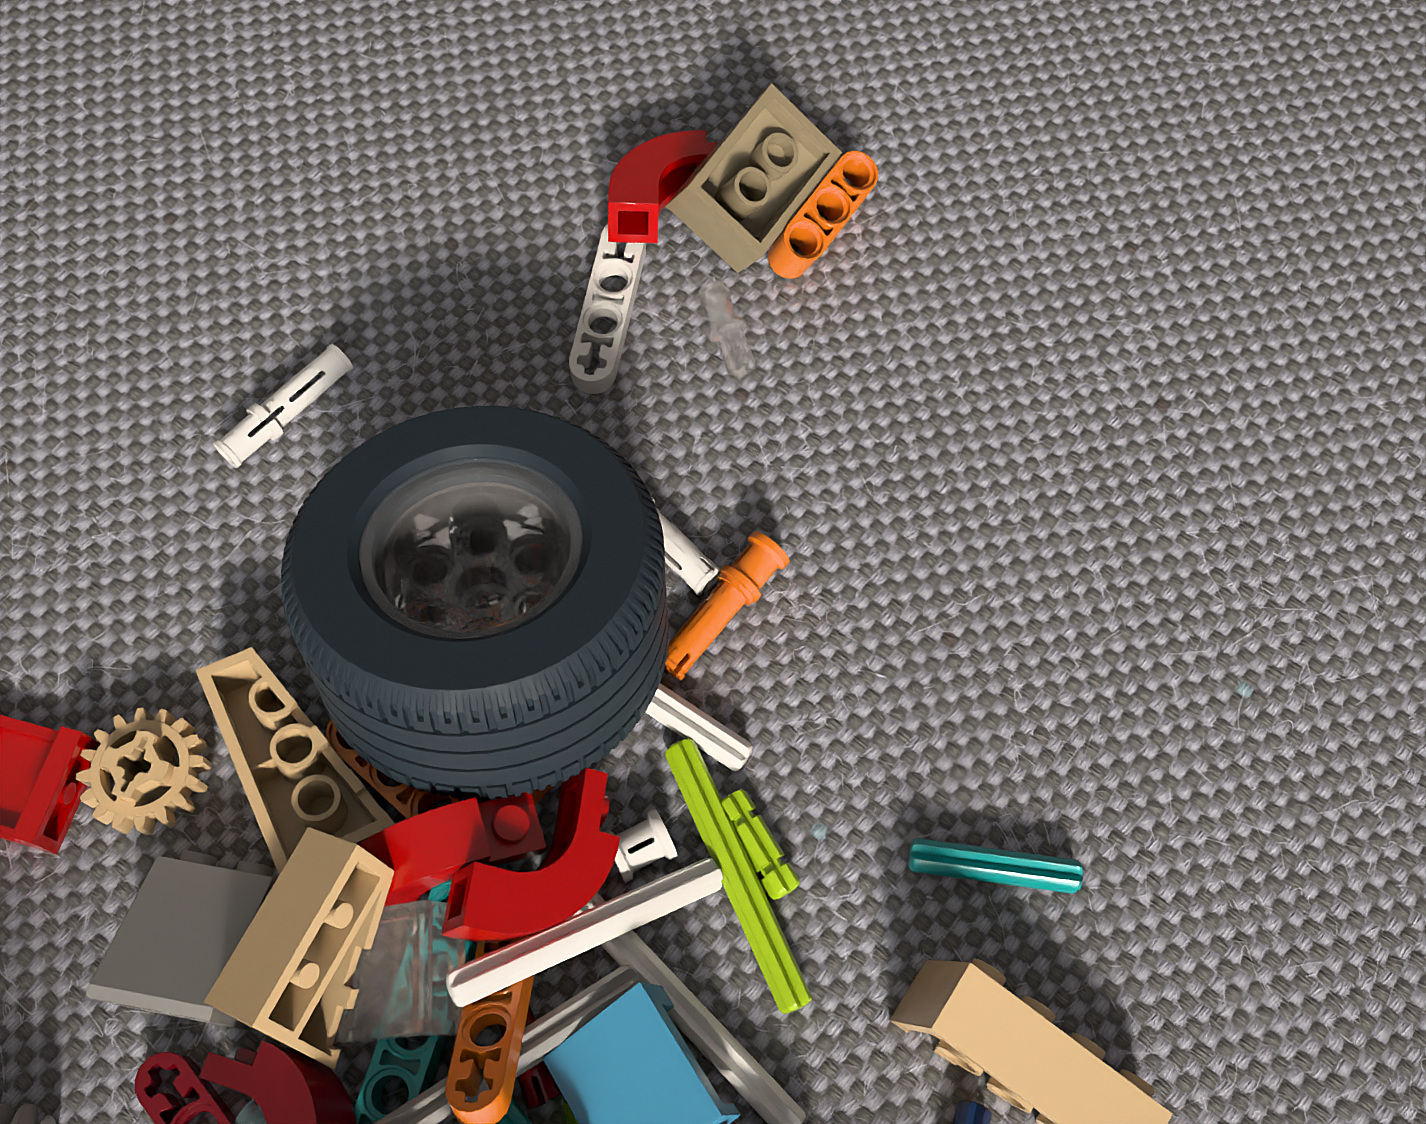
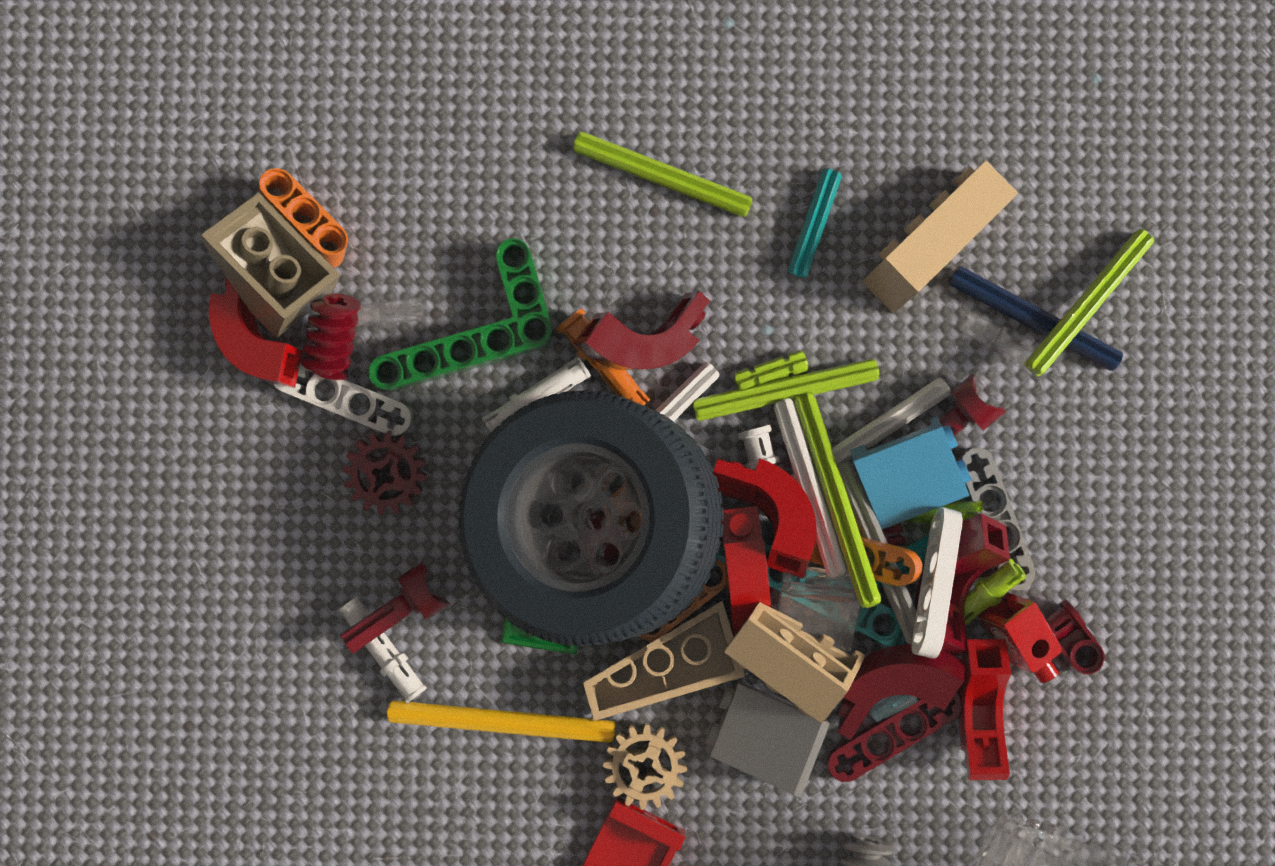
camera: 80 degrees left, 20 degrees up
(198, 572) = (501, 721): none -> yellow axle
(351, 420) = (414, 598): none -> dark red piece
(517, 360) = (369, 465): none -> dark red gear
(565, 974) = (837, 501): none -> lime axle
(681, 264) = (332, 336): none -> dark red piece
(718, 442) = (478, 337): none -> green beam
(743, 641) = (620, 348): none -> dark red arch
(1003, 641) = (662, 174): none -> lime axle

